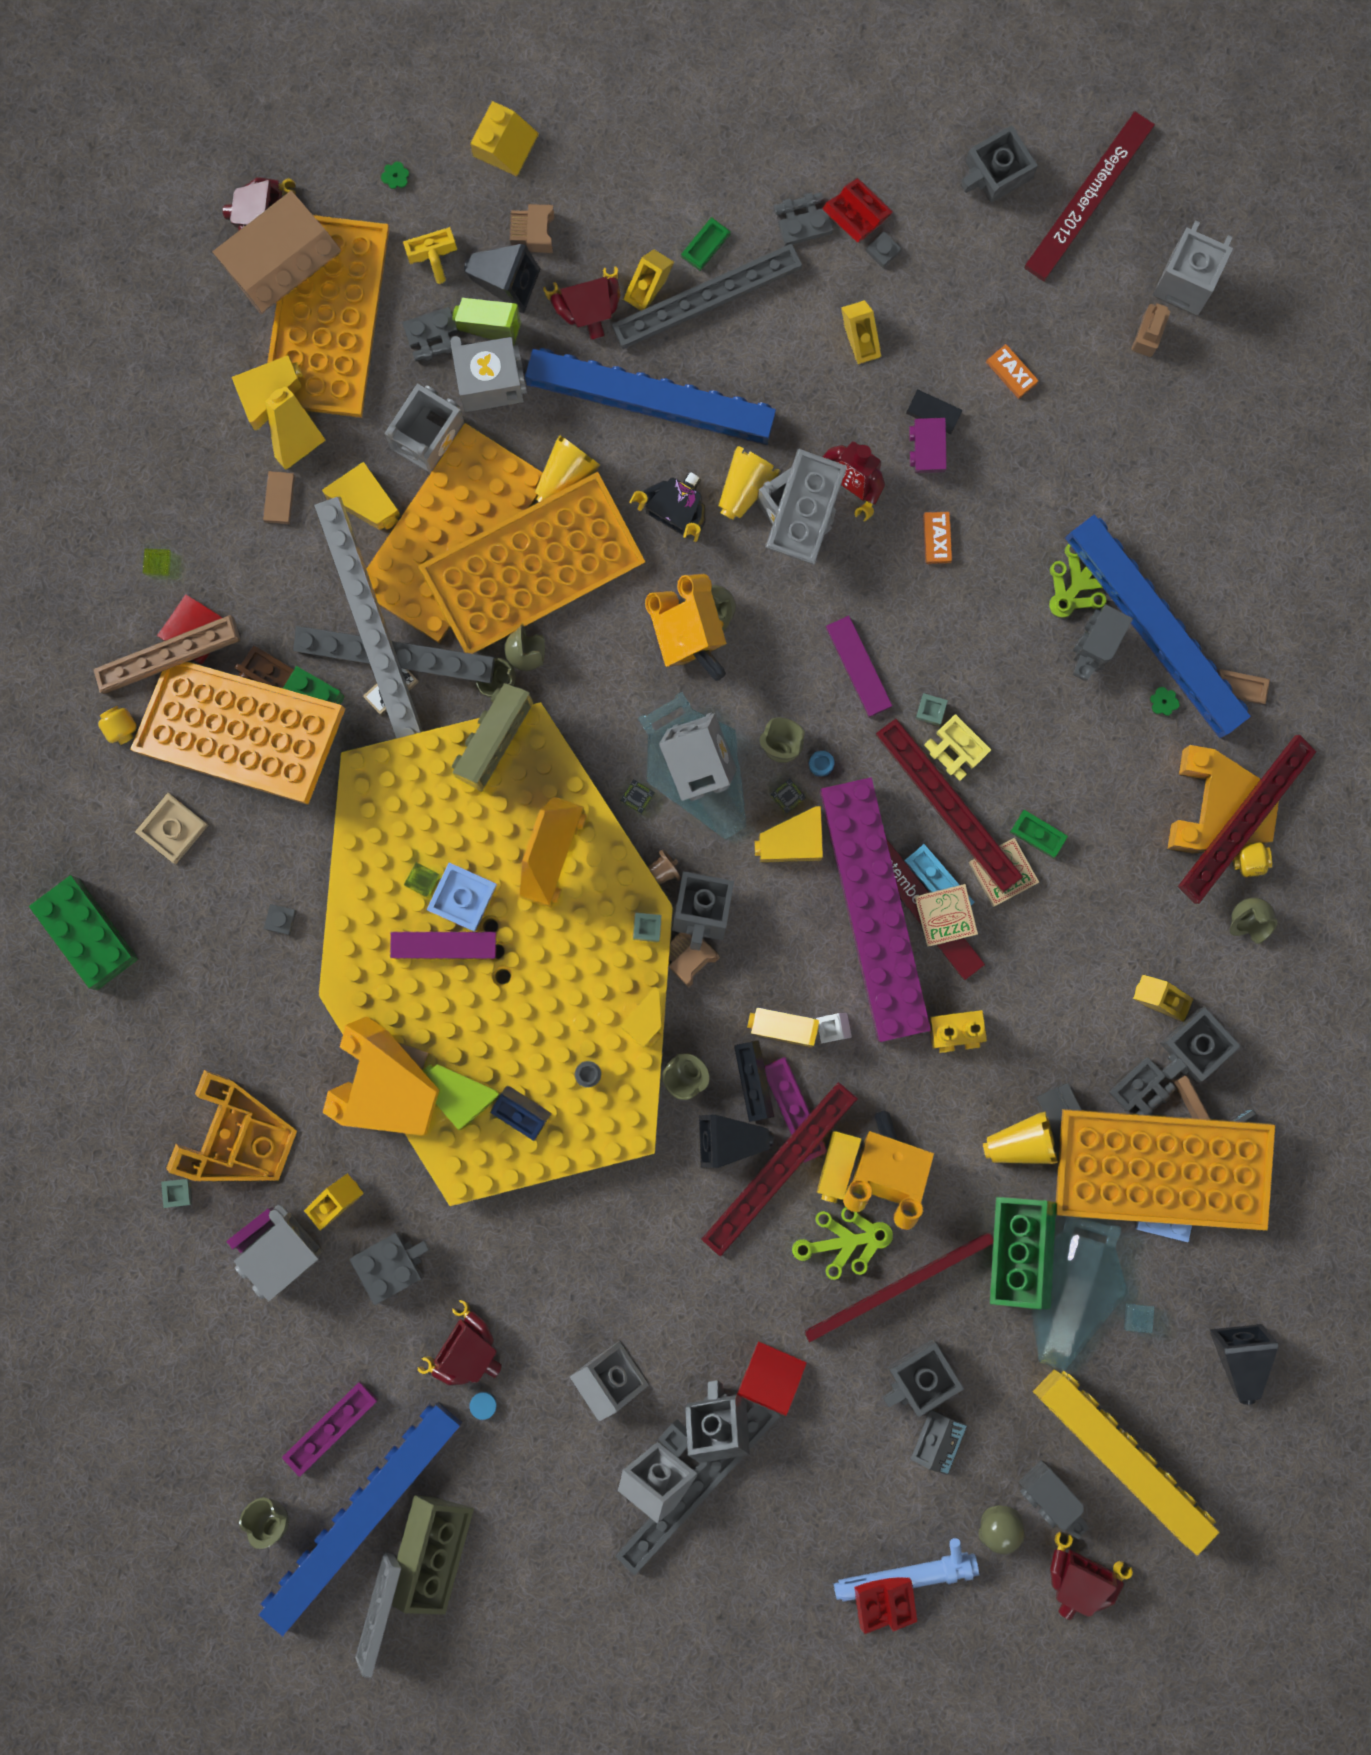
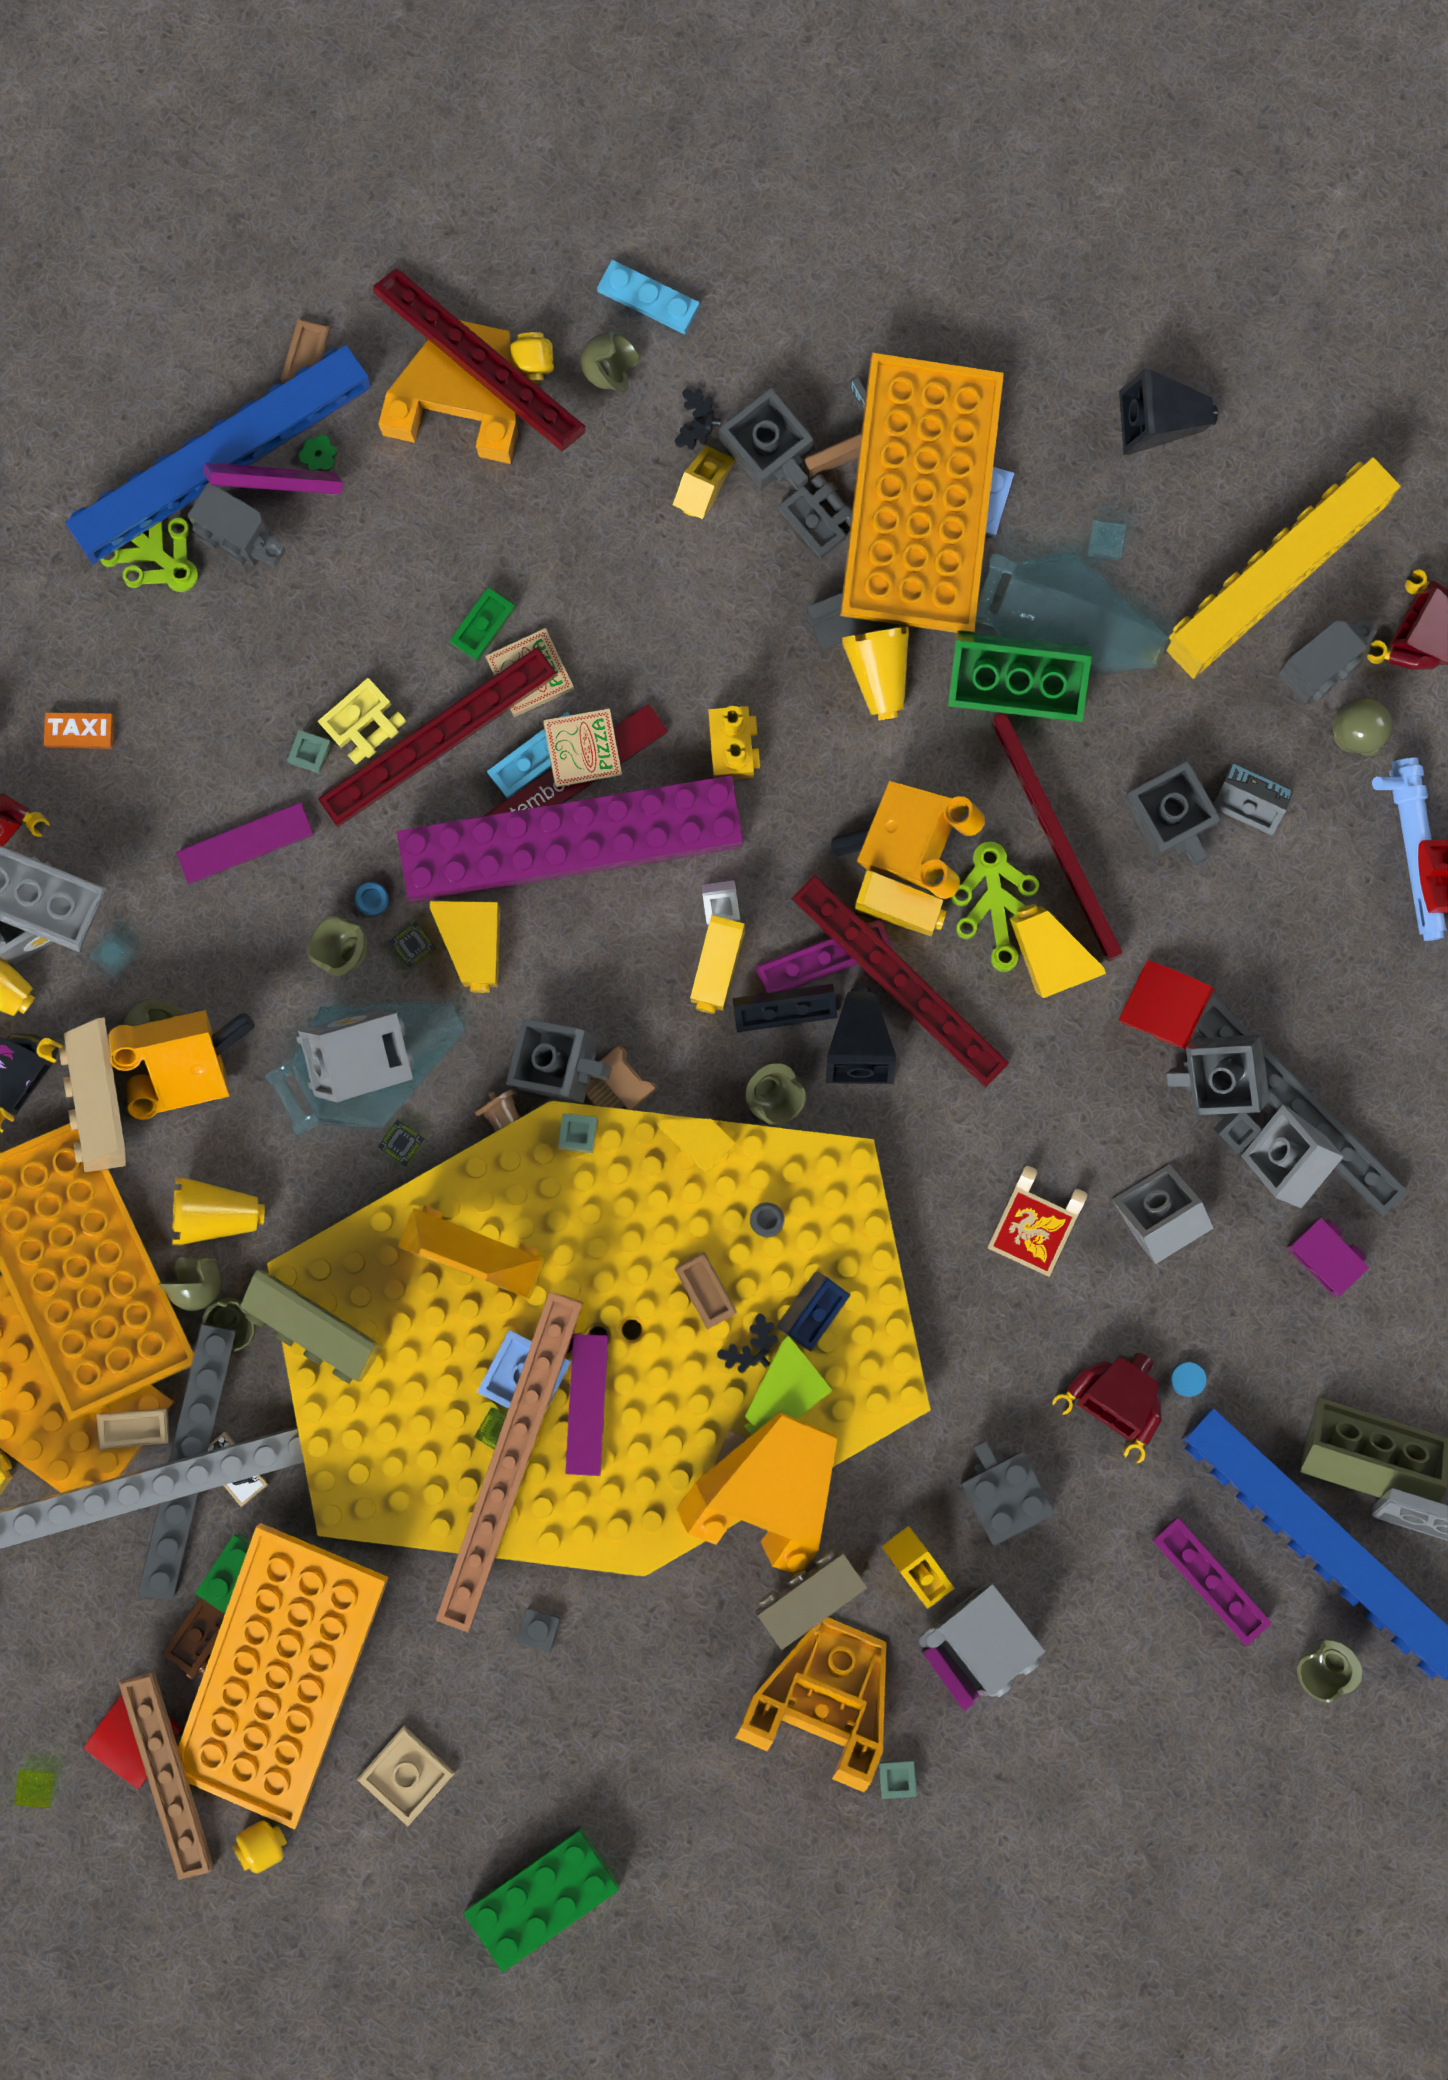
camera: 80 degrees left, 0 degrees up
(305, 1120) = (809, 1598): none -> dark tan slope
(399, 890) = (509, 1461): none -> nougat plate
(415, 613) = (133, 1429): none -> tan tile
(495, 1076) = (763, 1343): none -> black animal
(532, 1030) = (705, 1290): none -> medium nougat tile
(578, 660) = (212, 1212): none -> yellow cone
(580, 1514) = (1328, 1256): none -> magenta brick
(594, 1280) = (1034, 1228): none -> flag
(658, 567) = (94, 1097): none -> tan slope
(769, 575) = (113, 954): none -> clear light blue plate
(806, 1287) = (1051, 952): none -> yellow slope
(1140, 667) = (273, 478): none -> magenta tile
(1221, 995) = (703, 410): none -> black animal
(1308, 947) = (648, 297): none -> medium azure plate

